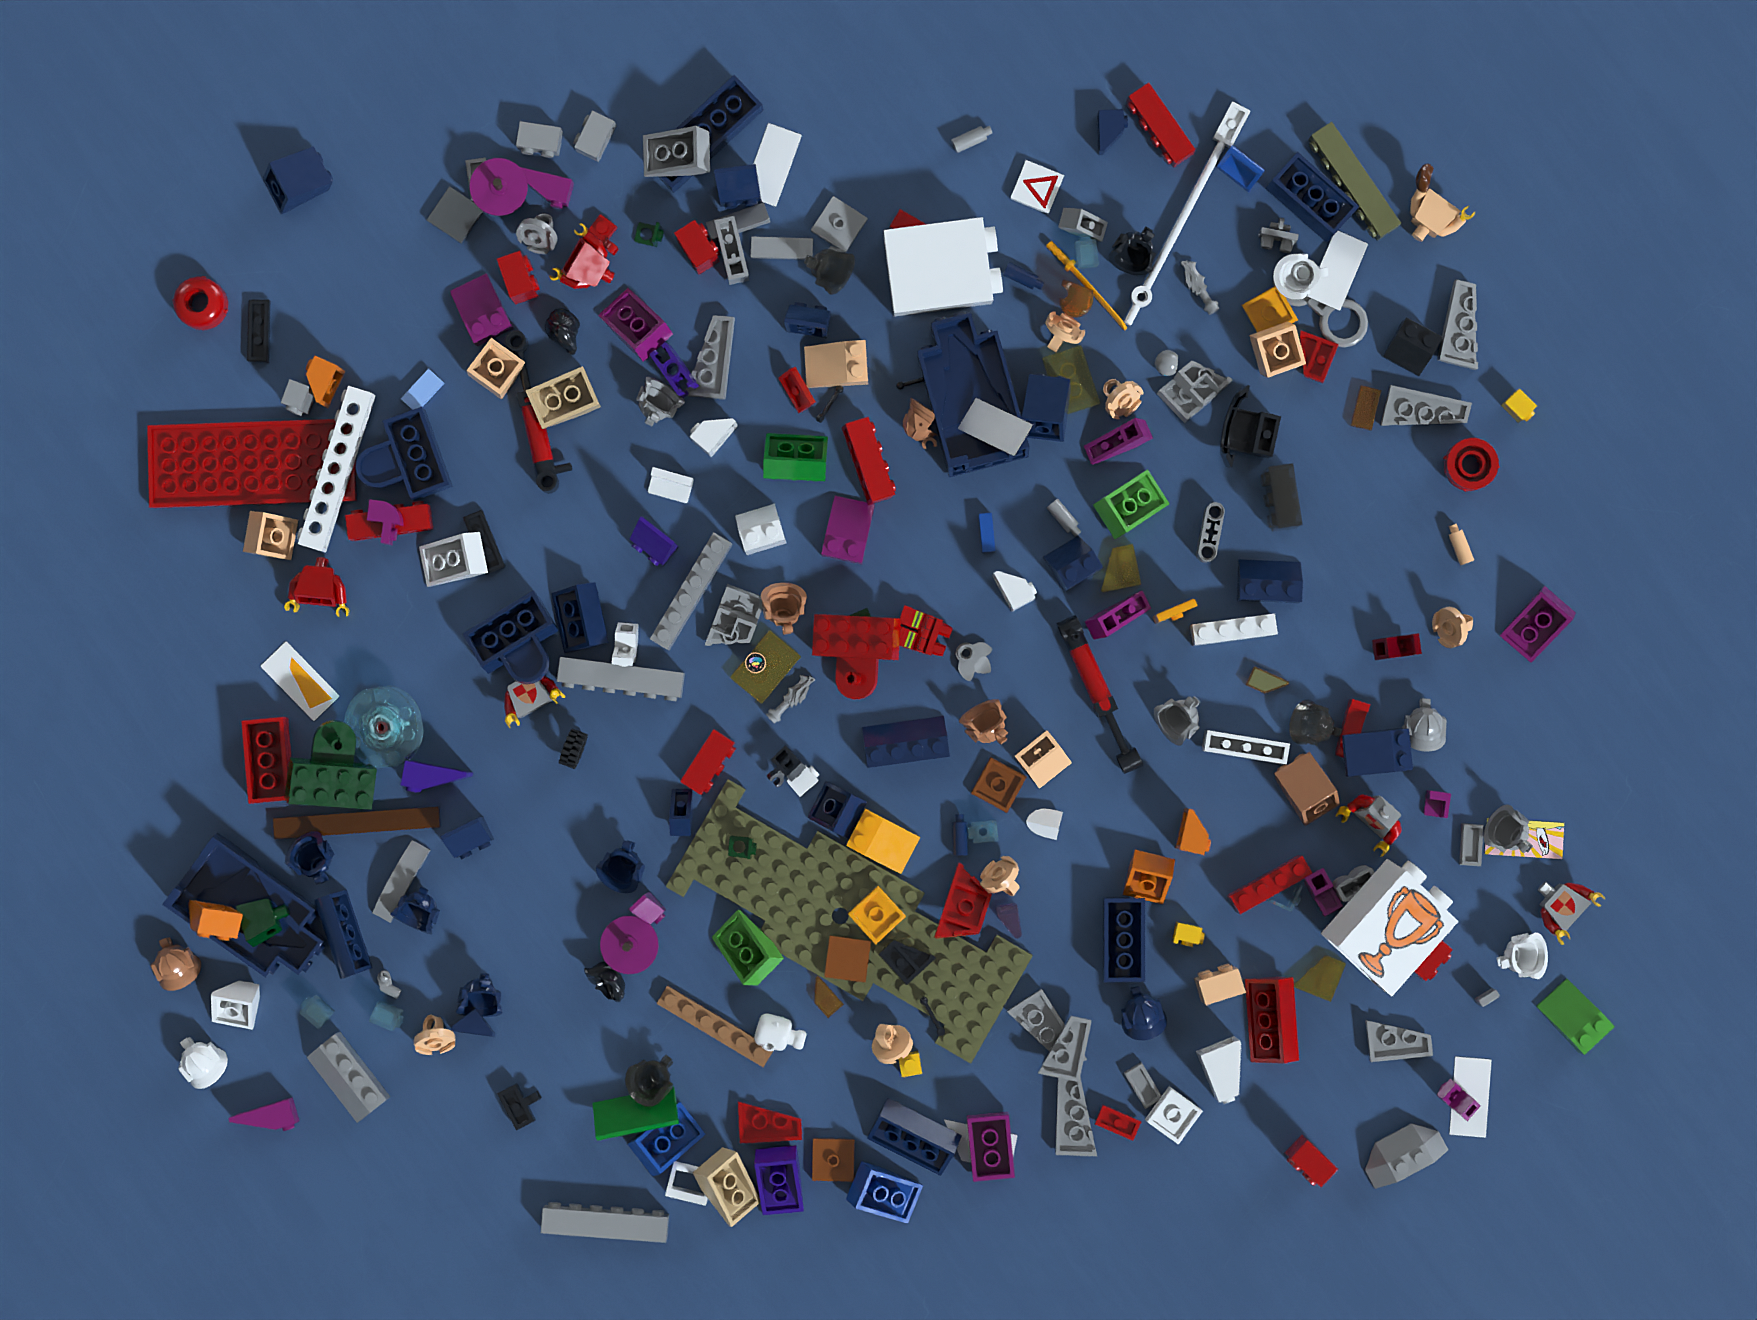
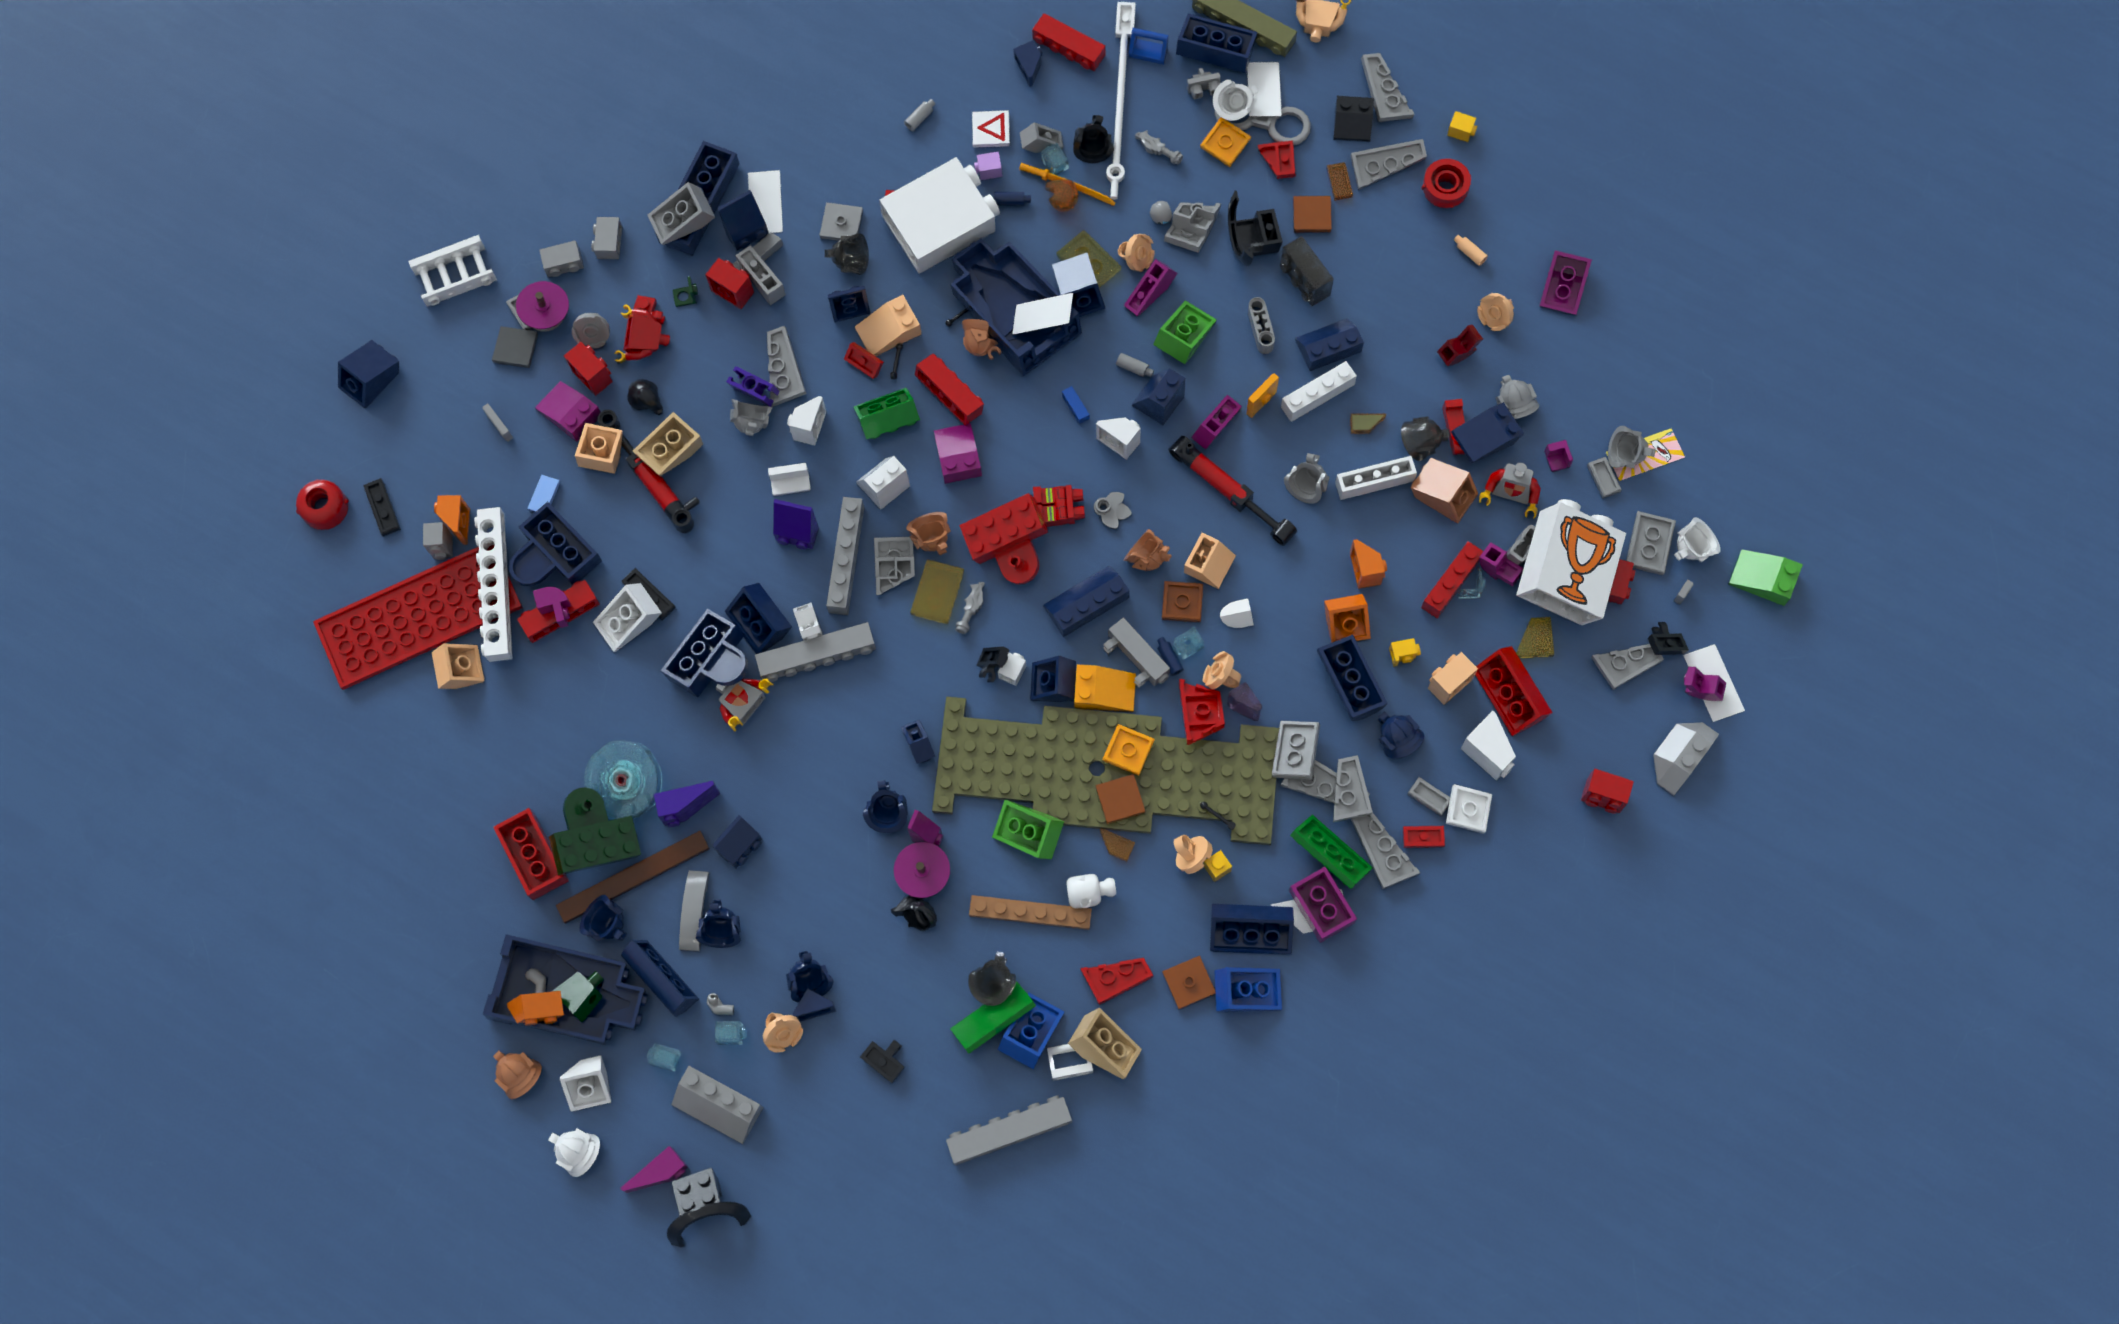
camera: 25 degrees left, 15 degrees down
(228, 884) = (537, 978): none -> light grey arm
(295, 1165) = (699, 1198): none -> black piece
(299, 681) = (533, 779): white sticker -> none
(317, 587) = (516, 689): red torso -> none
(405, 291) = (497, 422): none -> light grey tile
(414, 84) = (446, 255): none -> white fence
(550, 187) = (586, 291): magenta slope -> none
(573, 748) = (799, 726): black tyre -> none
(635, 324) = (705, 366): magenta slope -> none
(708, 762) = (923, 689): red brick -> none
(750, 847) = (990, 739): dark green bracket -> none
(755, 662) = (927, 589): tile -> none
(779, 1180) = (1149, 1021): dark purple slope -> none
(781, 248) = (800, 260): light grey tile -> none
(905, 960) = (1171, 777): black wing -> none
(932, 820) = (1139, 652): none -> light grey brick
(1015, 230) = (988, 166): none -> lavender brick
(1023, 1099) = (1331, 851): none -> green plate
(1037, 985) = (1296, 750): none -> light grey tile
(1064, 329) = (1063, 221): light nougat tile -> none
(1121, 569) = (1202, 386): clear yellow wing -> none
(1277, 349) = (1245, 163): light nougat brick -> none
(1320, 432) = (1312, 213): none -> dark orange tile
(1443, 1041) = (1665, 643): none -> black plate
(1481, 931) = (1650, 542): none -> light grey tile
(1564, 905) = (1708, 488): torso -> none

